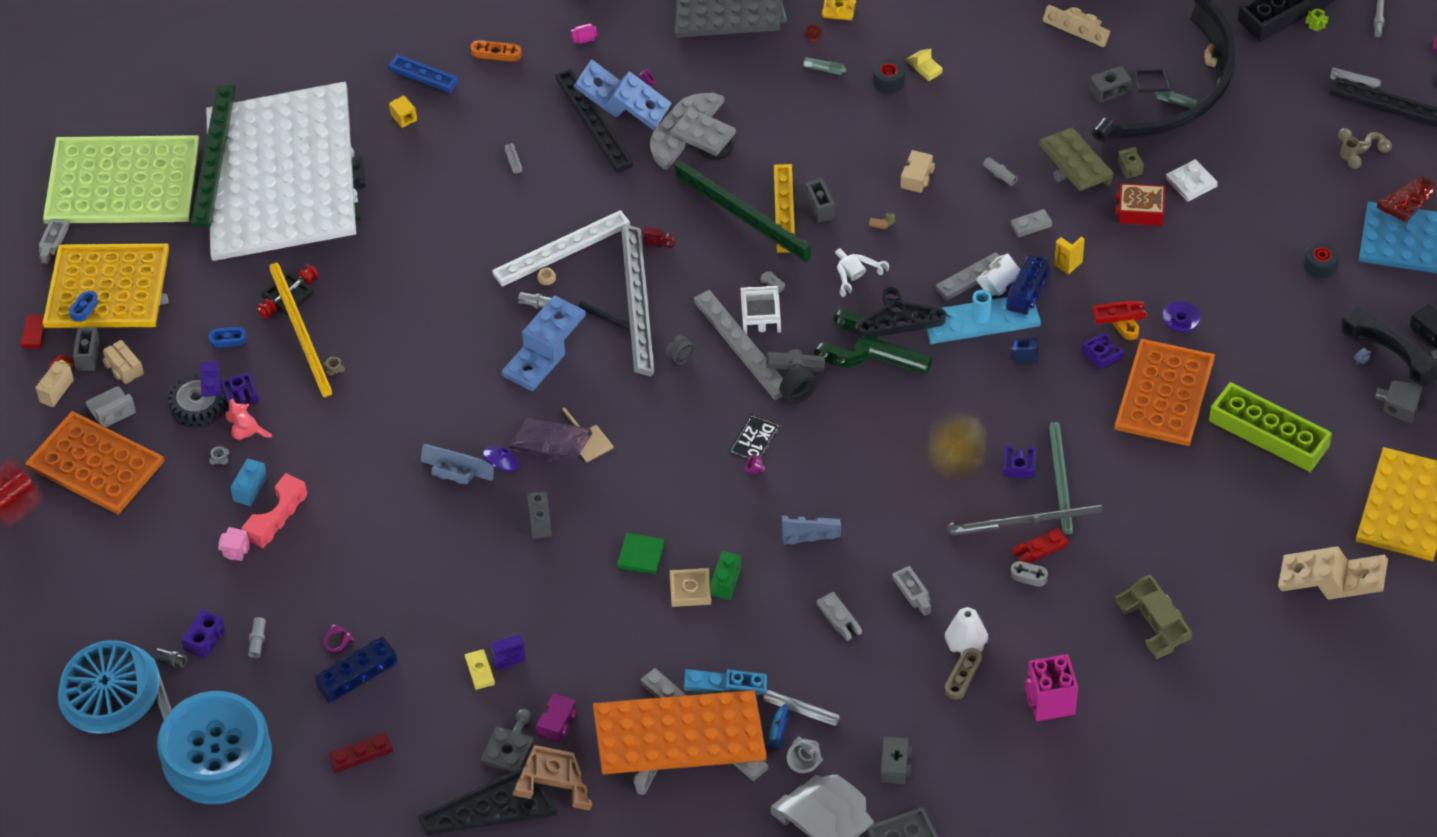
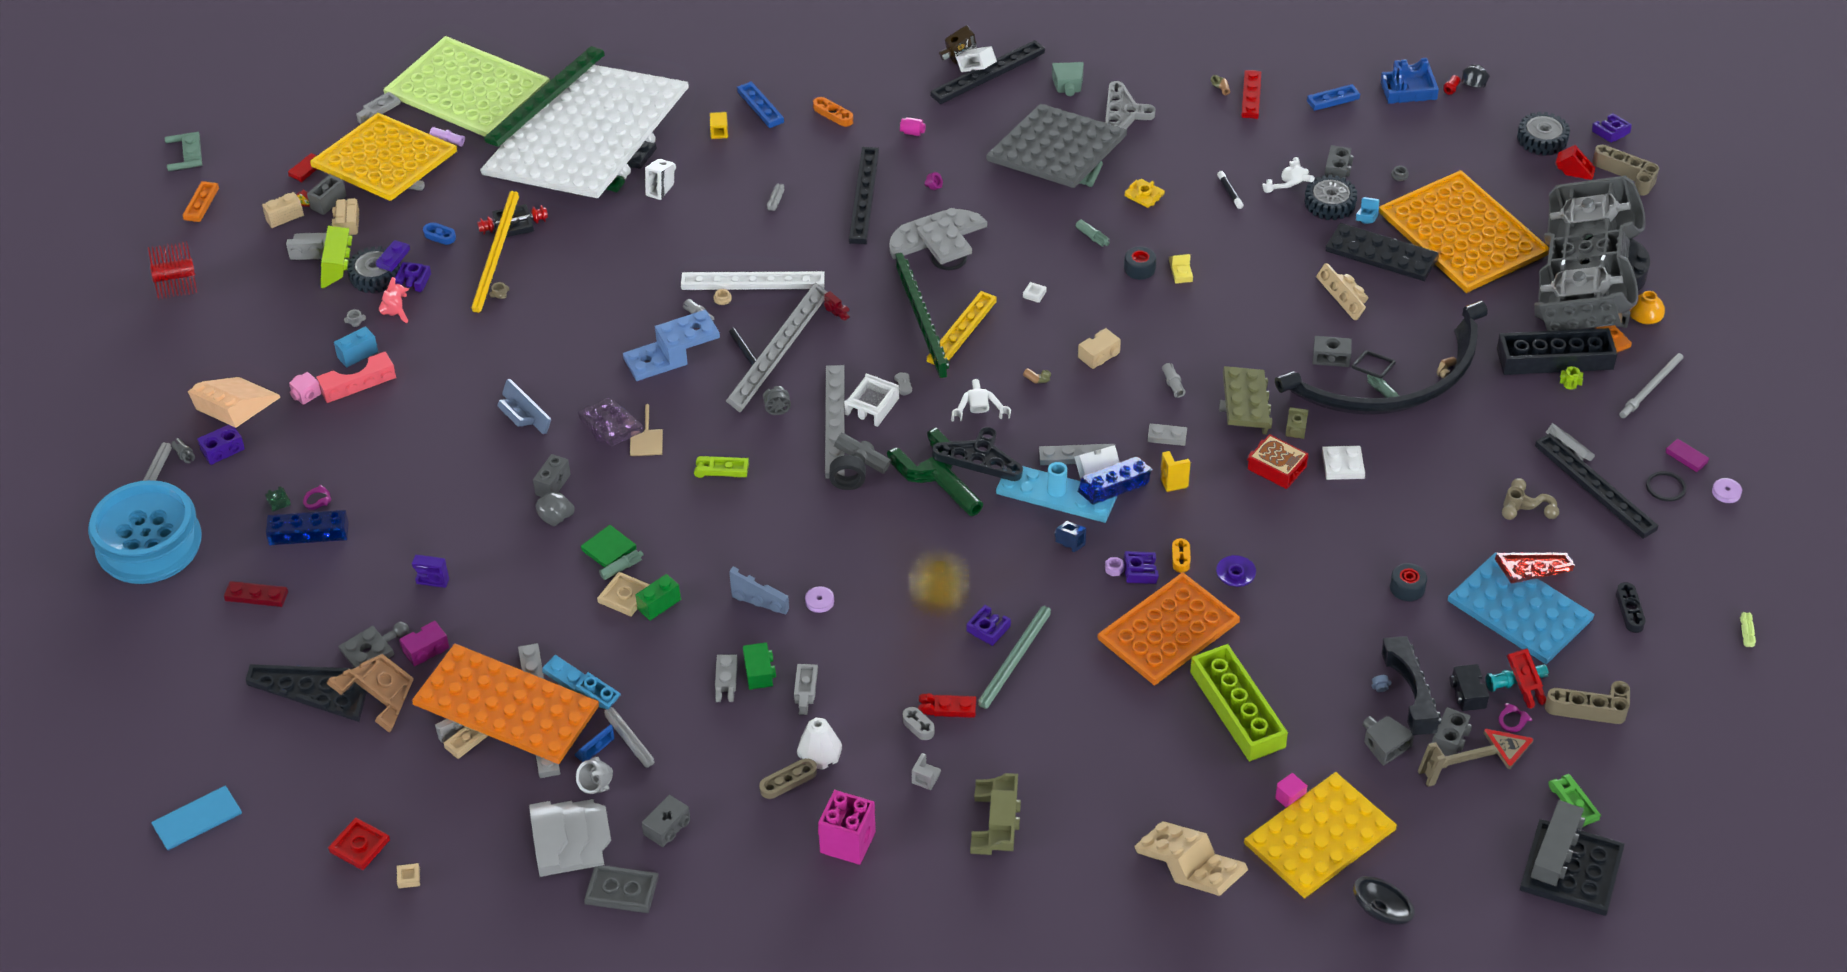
camera: 30 degrees right, 5 degrees down
(83, 306) = (347, 160): blue plate -> none
(94, 462) = (261, 281): orange plate -> none
(106, 685) = (138, 434): dark azure piece -> none
(148, 238) = (447, 136): none -> lavender pin
(153, 405) = (335, 255): none -> lime slope
(180, 587) = (231, 399): none -> light nougat slope
(256, 637) = (257, 466): light grey pin -> none
(301, 658) = (277, 499): none -> clear green tile
(394, 182) = (659, 178): none -> white torso
(479, 669) = (401, 576): light yellow plate -> none
(500, 458) = (560, 419): dark purple dish -> none
(566, 542) = (554, 508): none -> dark grey hair
(622, 94) = (900, 183): medium blue bracket -> none
(665, 784) = (463, 741): none -> tan plate
(666, 563) = (621, 564): none -> sand green piece
(679, 433) = (721, 466): none -> lime plate
(754, 437) = (782, 500): black sticker -> none
(754, 465) = (760, 521): magenta tile -> none
(813, 32) = (1105, 203): clear red plate -> none
(817, 144) = (1034, 292): none -> white tile
(820, 200) = (994, 334): dark grey brick -> none
(856, 503) = (822, 605): none -> lavender piece
(860, 591) = (758, 666): none -> green brick
(954, 530) = (884, 655): dark grey bar -> none
(1069, 613) = (924, 774): none -> light grey panel
(1080, 360) = (1114, 566): none -> lavender tile
(1118, 311) = (1179, 540): red hinge -> none
(1362, 480) = (1290, 790): none -> dark pink piece

